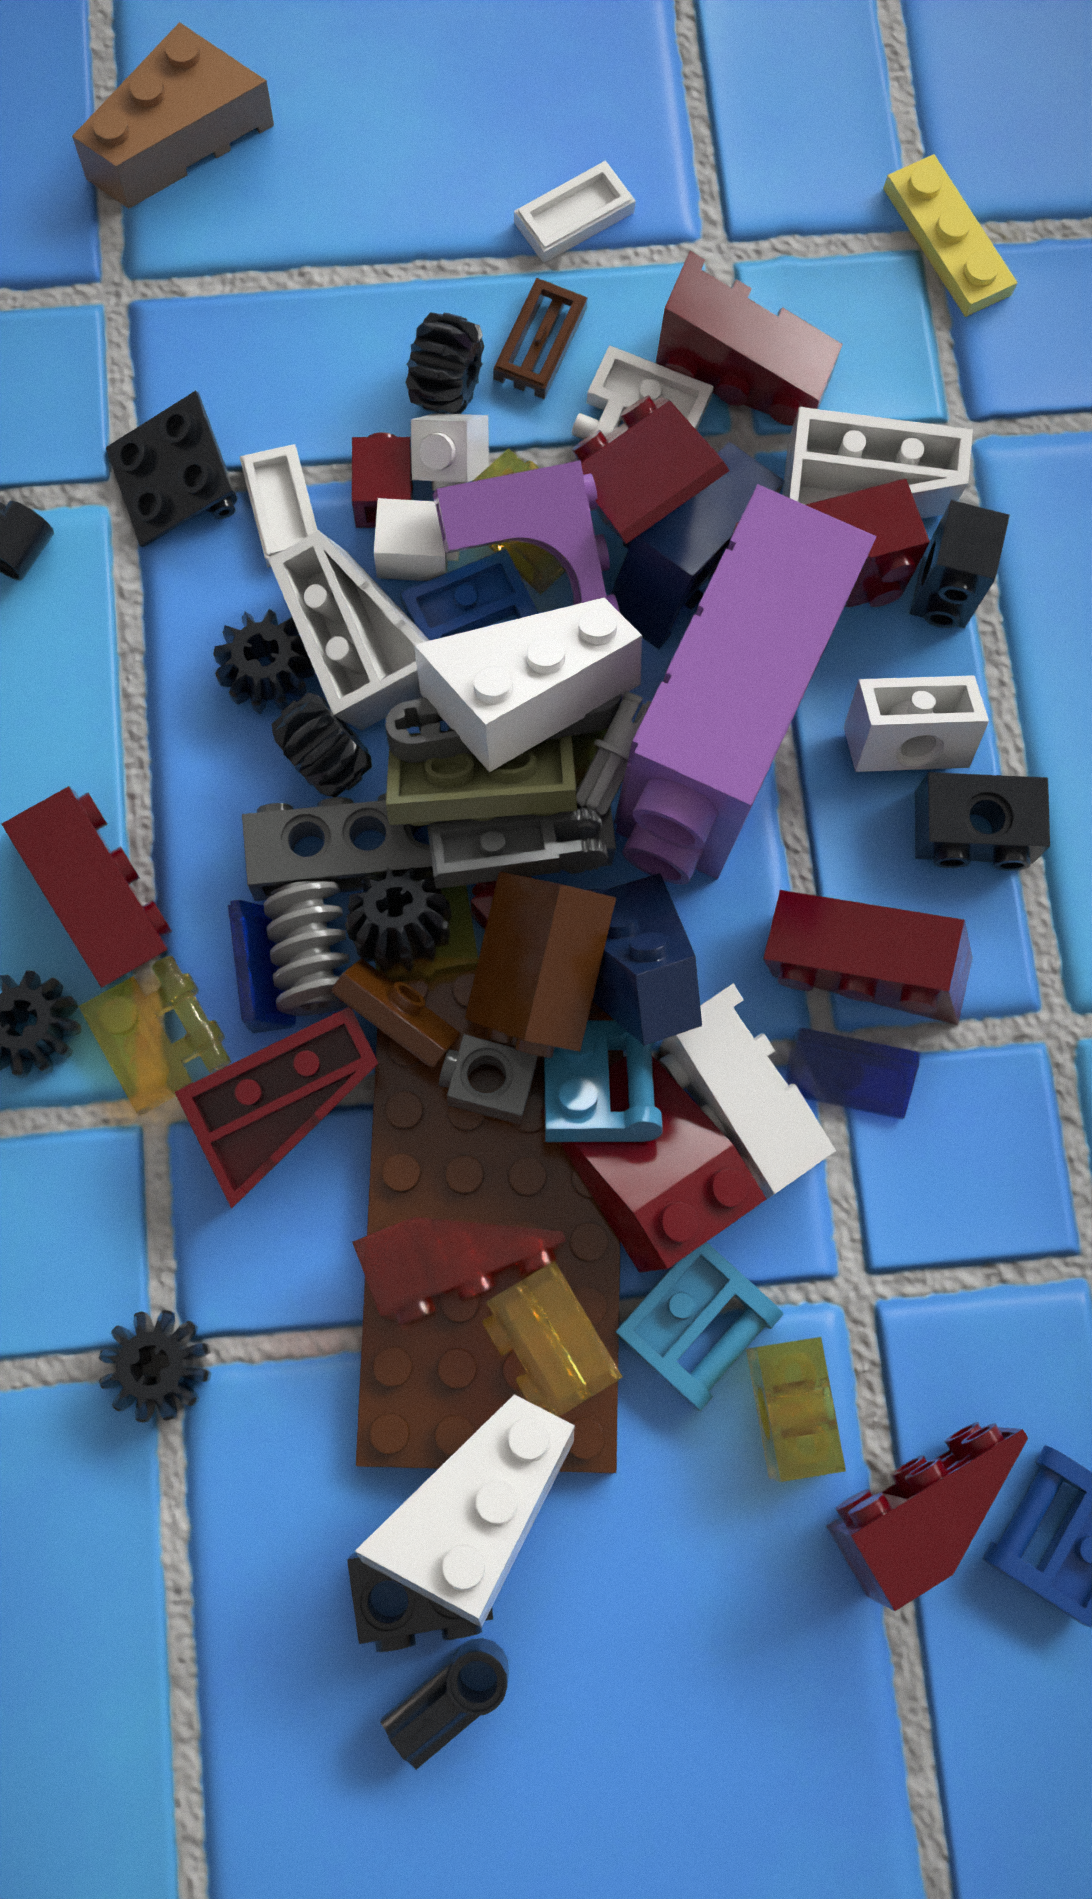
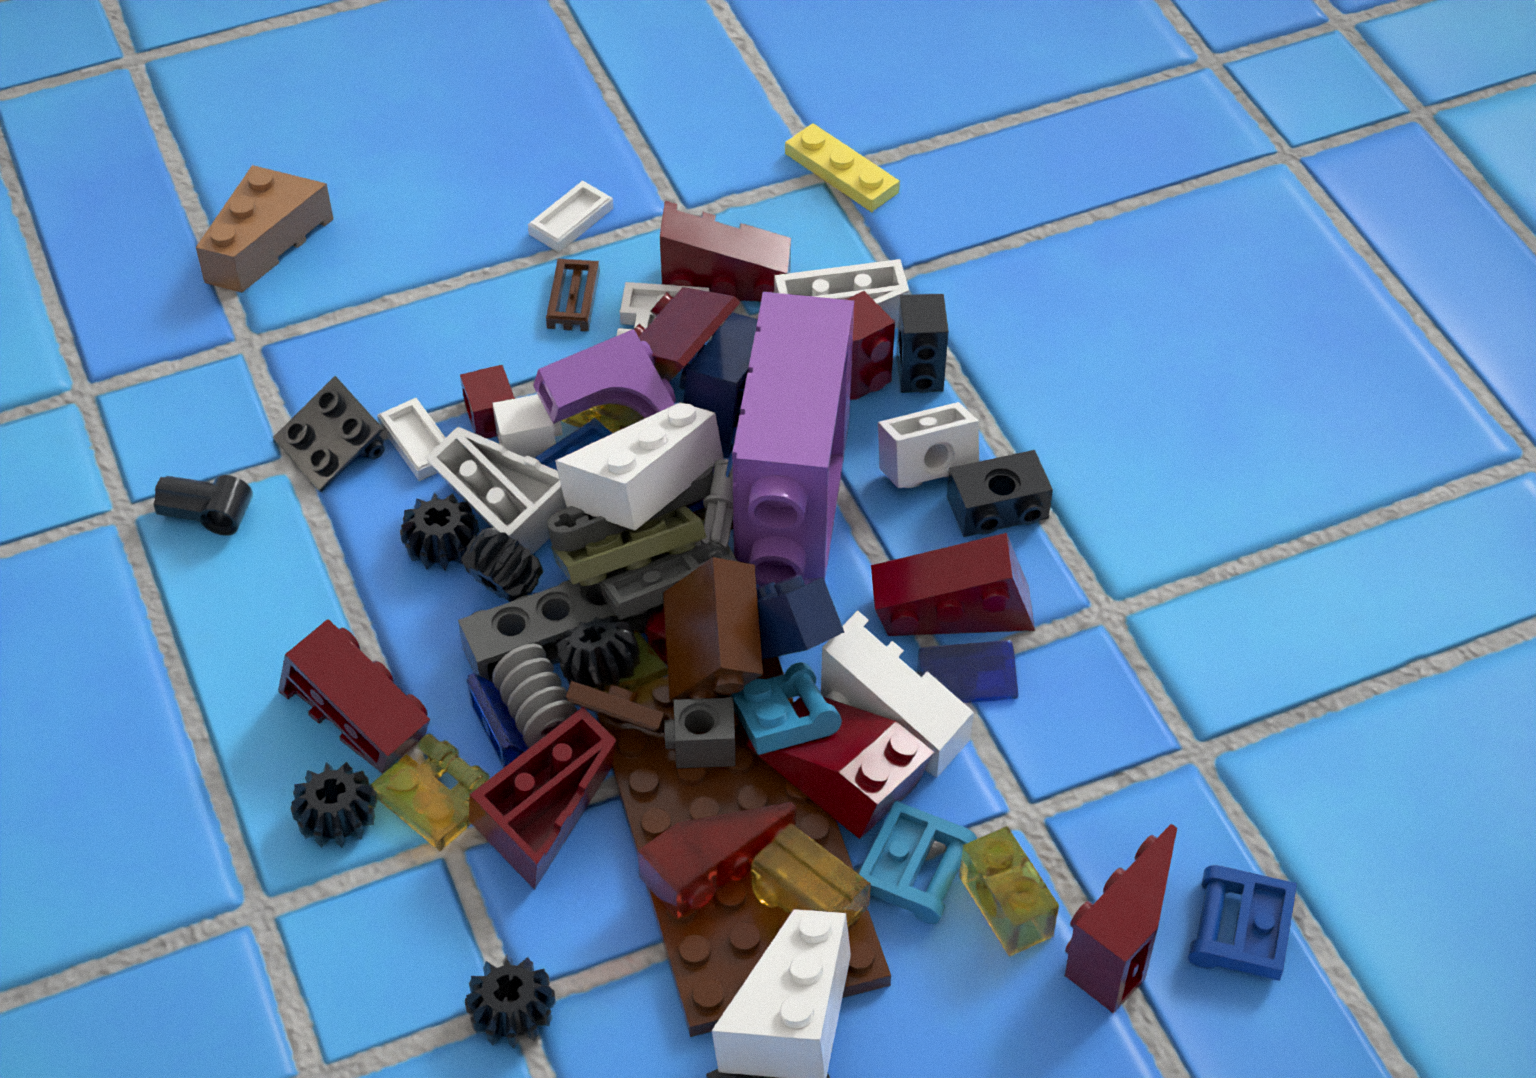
camera: 10 degrees left, 25 degrees down
(444, 363) = (511, 318): black gear -> none
(449, 448) = (525, 359): white brick -> none

